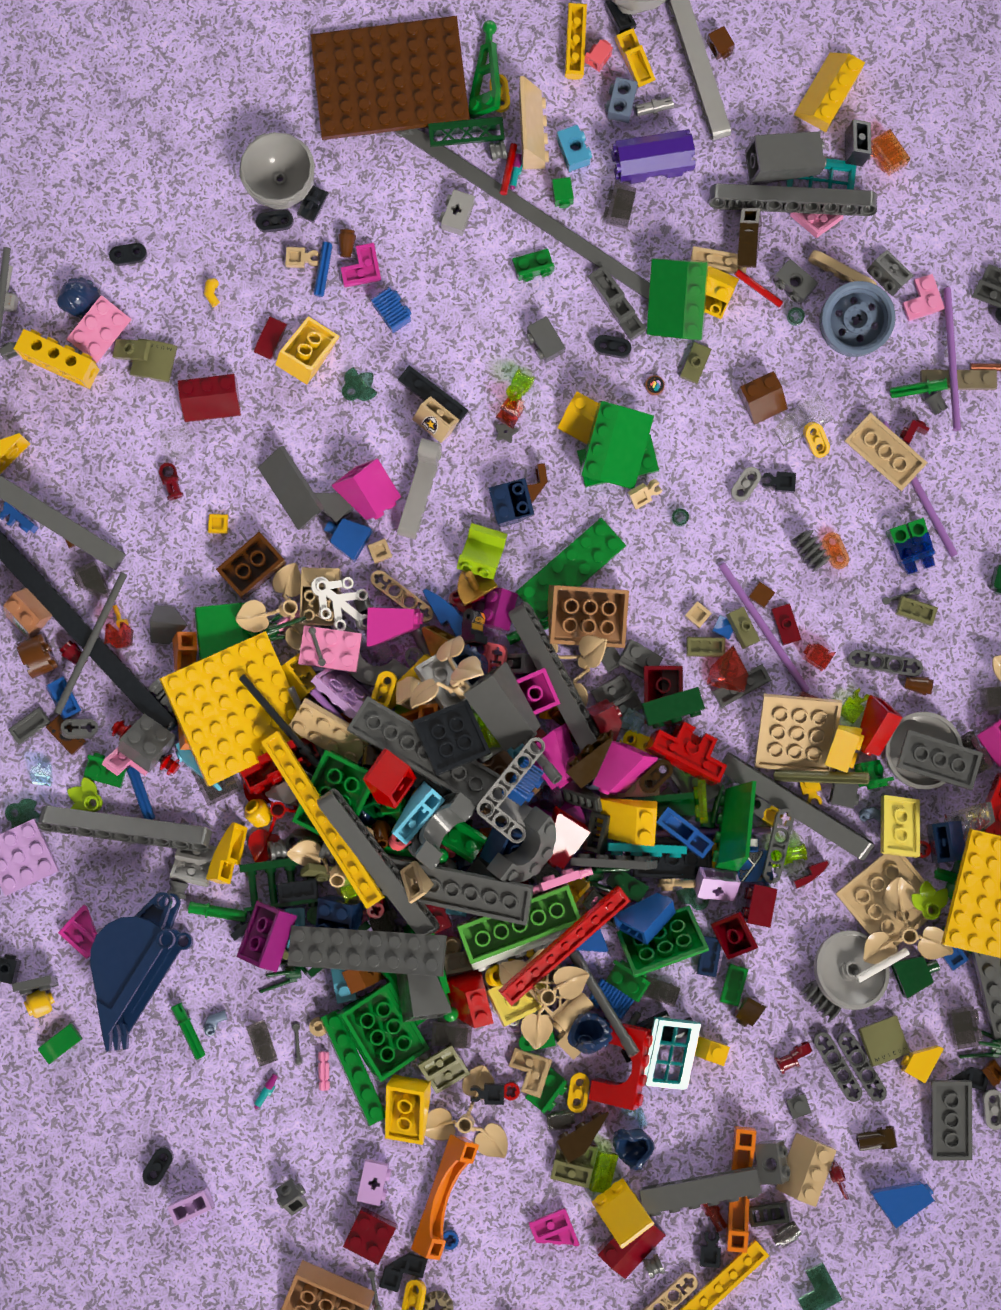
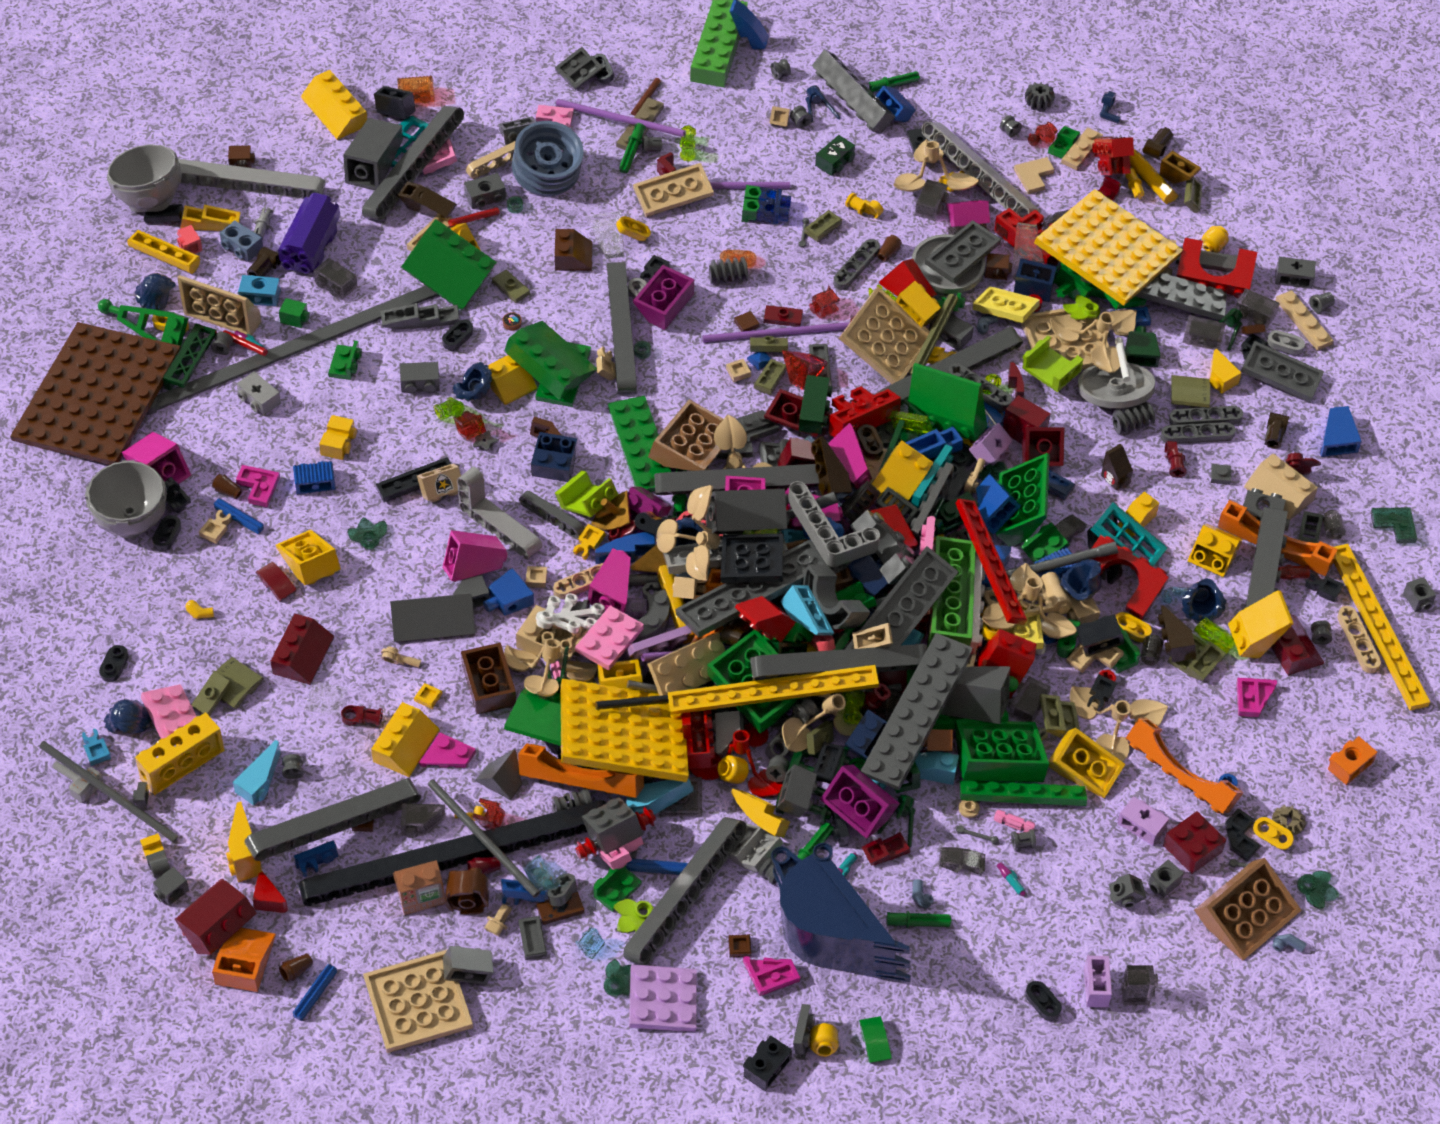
camera: 65 degrees left, 30 degrees down
(27, 690) = (496, 925): none -> tan piece
(37, 289) = (95, 749): none -> dark azure plate
(70, 431) = (257, 777): none -> medium azure slope
(85, 705) = (541, 874): none -> clear light blue slope
(94, 453) = (292, 766): none -> dark grey wheel
(98, 895) = (739, 945): none -> reddish brown tile
(161, 529) = (404, 740): none -> yellow slope
(170, 569) = (448, 752): none -> dark pink wing
(200, 1243) = (1138, 984): none -> clear smoke brick
(210, 947) = (844, 867): none -> teal piece
(240, 473) = (391, 655): none -> tan plate
(245, 974) = (888, 849): none -> dark red slope
(252, 879) = (797, 791): none -> dark grey brick
(306, 1086) = (1016, 837): none -> dark grey bush
(321, 661) = (619, 642): dark grey hinge -> none
(330, 1219) = (1168, 872): none -> dark grey brick
(340, 170) = (160, 455): none -> dark pink slope
(384, 689) = (670, 613): yellow plate -> none
(442, 576) = (589, 539): none -> yellow plate
(443, 306) = (337, 439): none -> yellow brick
(452, 531) = (551, 514): none -> dark grey beam
(526, 59) = (154, 291): none -> dark blue hair
(542, 1072) = (1100, 635): none -> black brick
(555, 392) = (475, 383): none -> dark blue hair
(607, 134) = (265, 261): none -> dark brown piece
(695, 485) = (621, 328): none -> dark grey beam
(703, 1135) = (1214, 549): none -> yellow slope
(733, 985) = (1088, 475): green plate -> none
(746, 507) = (664, 296): none -> magenta slope
(843, 900) = (1051, 366): none -> lime panel
(948, 798) = (998, 266): none -> reddish brown brick
(955, 436) = (688, 144): none -> clear neon green connector
(960, 634) = (864, 205): none -> yellow connector

